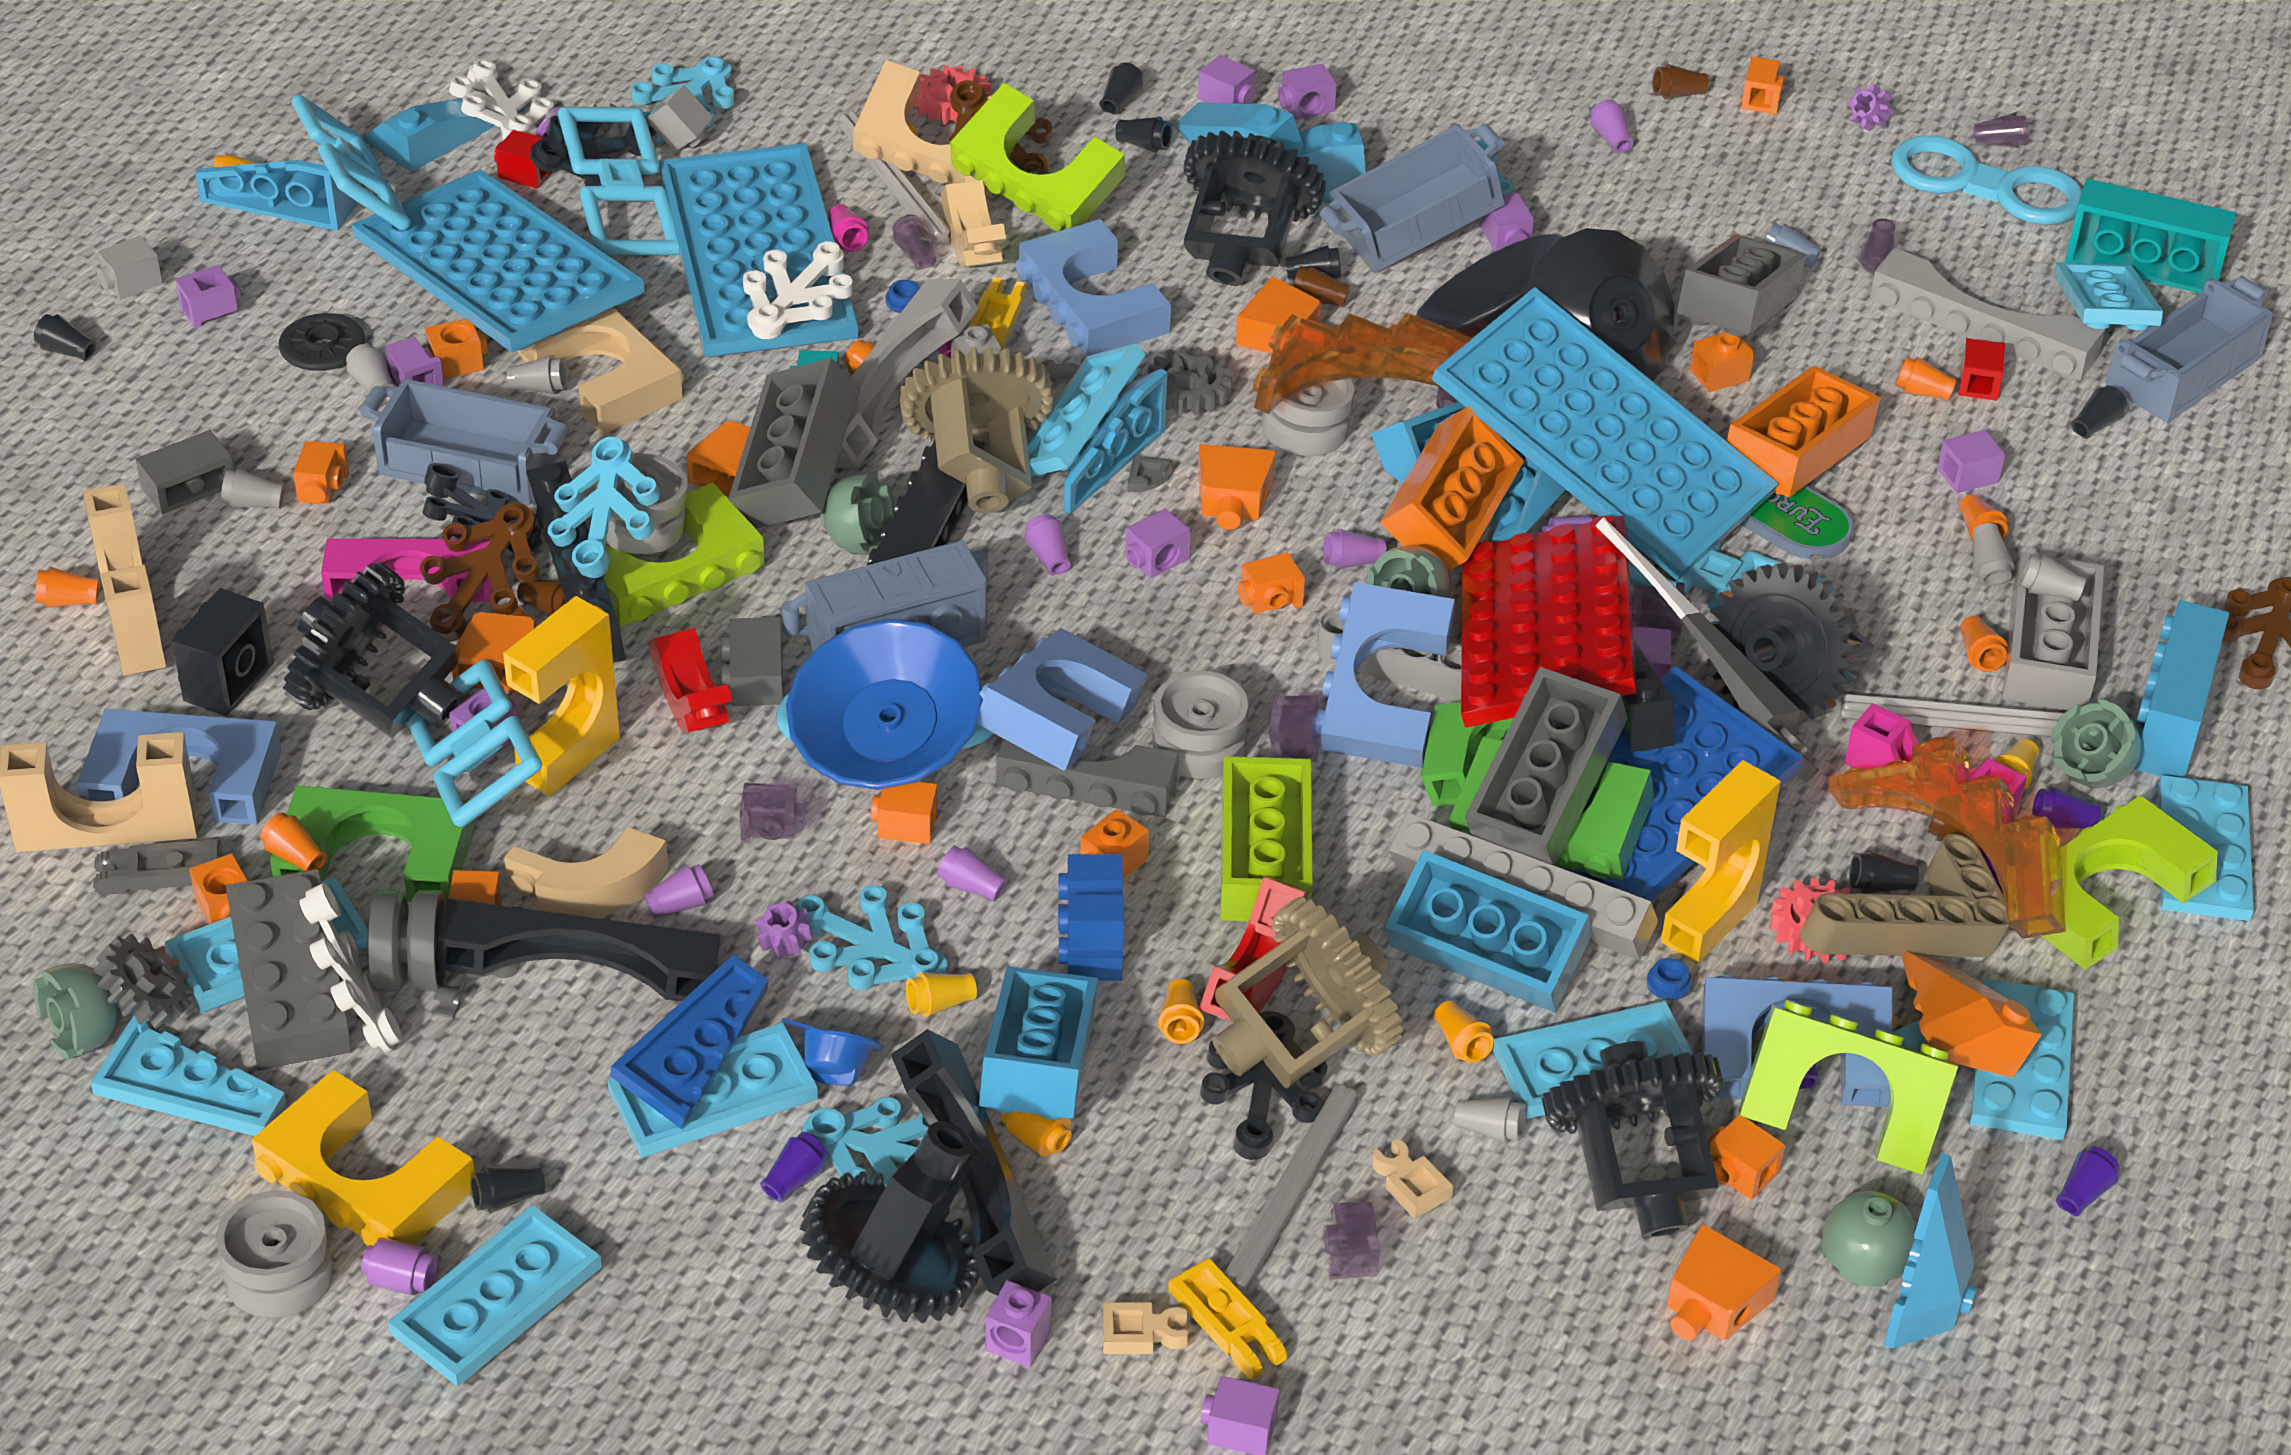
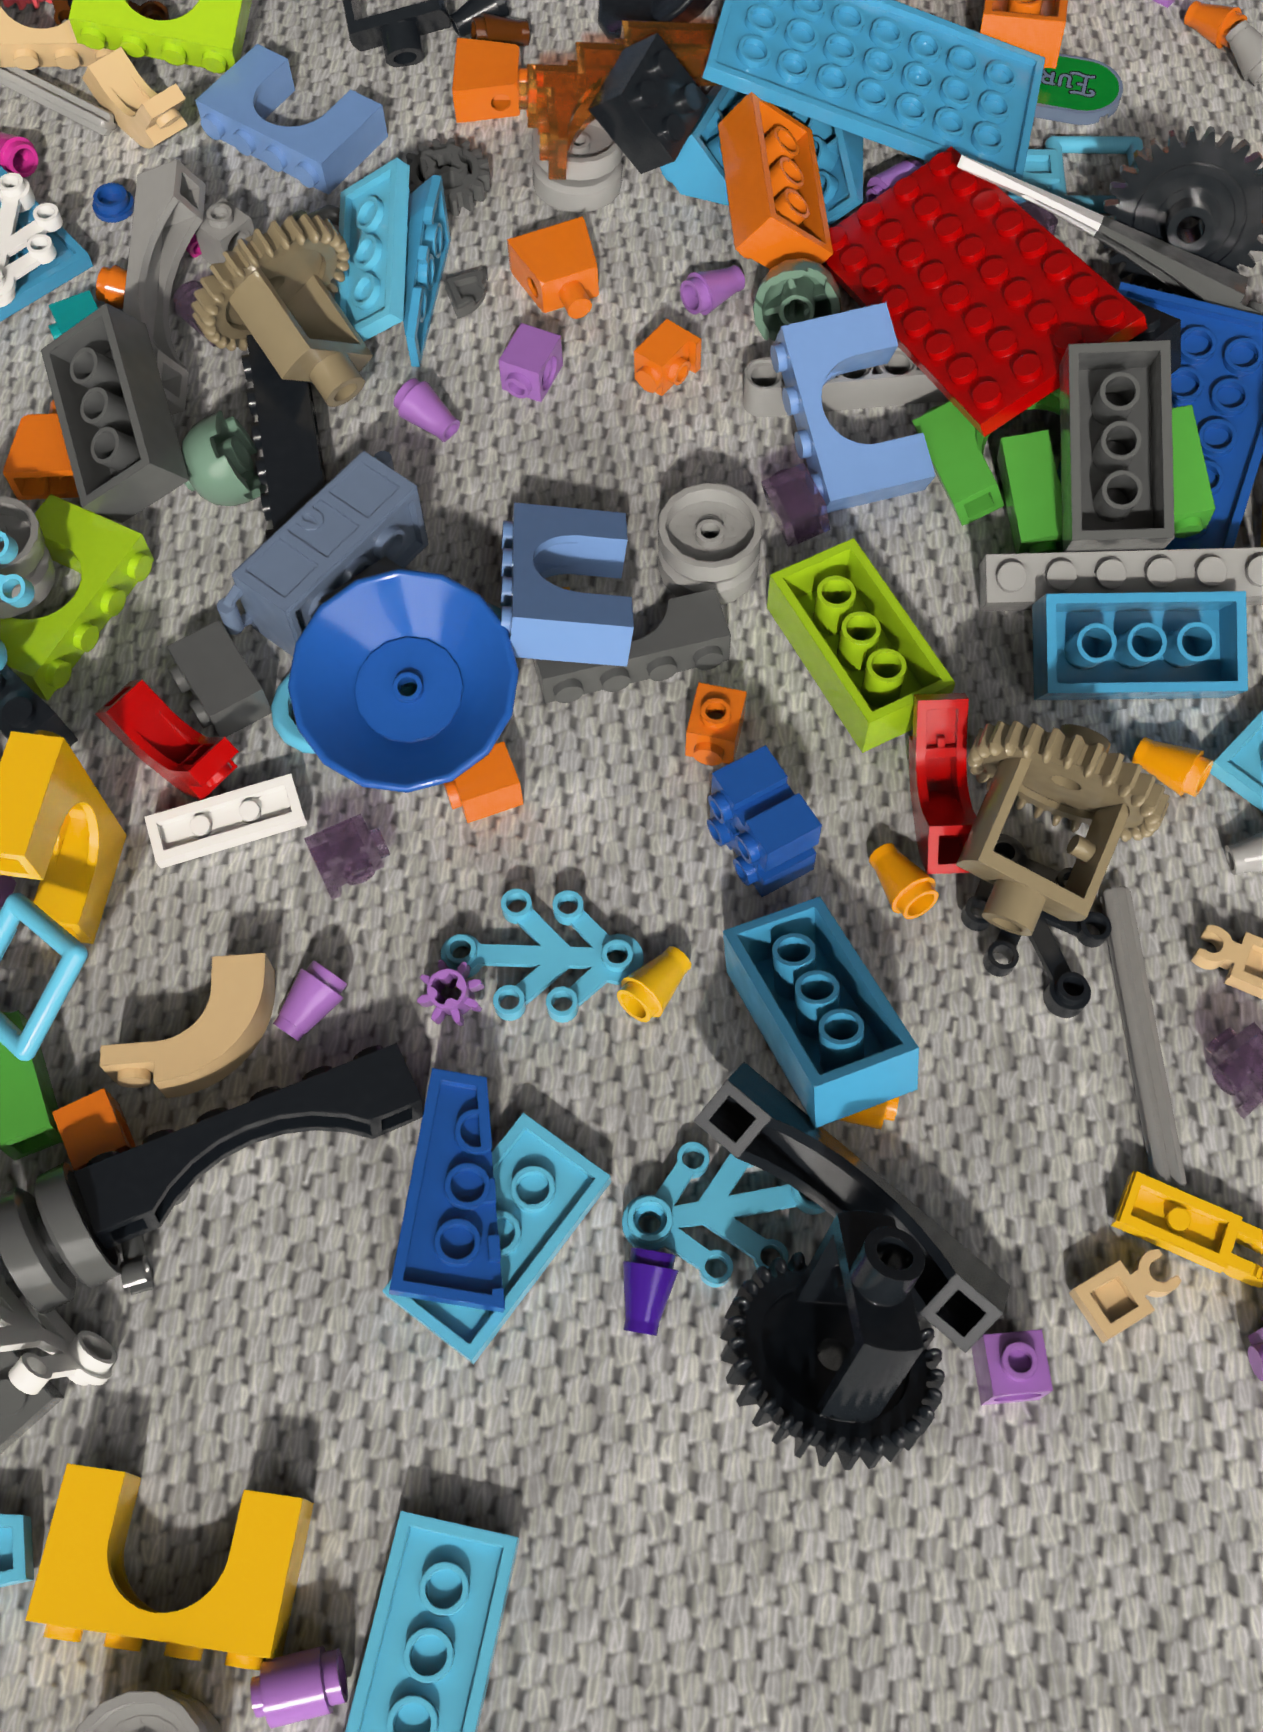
camera: 25 degrees left, 20 degrees up
(504, 1186) = (351, 1496): black cone -> none
(697, 755) = (225, 821): none -> white plate
(835, 1055) = (597, 1124): blue piece -> none
(914, 240) = (86, 140): clear purple cone -> none
(969, 873) = (594, 824): medium lavender cone -> none
(1000, 309) = (216, 174): yellow hinge -> none
(1378, 384) = (649, 104): none -> black brick

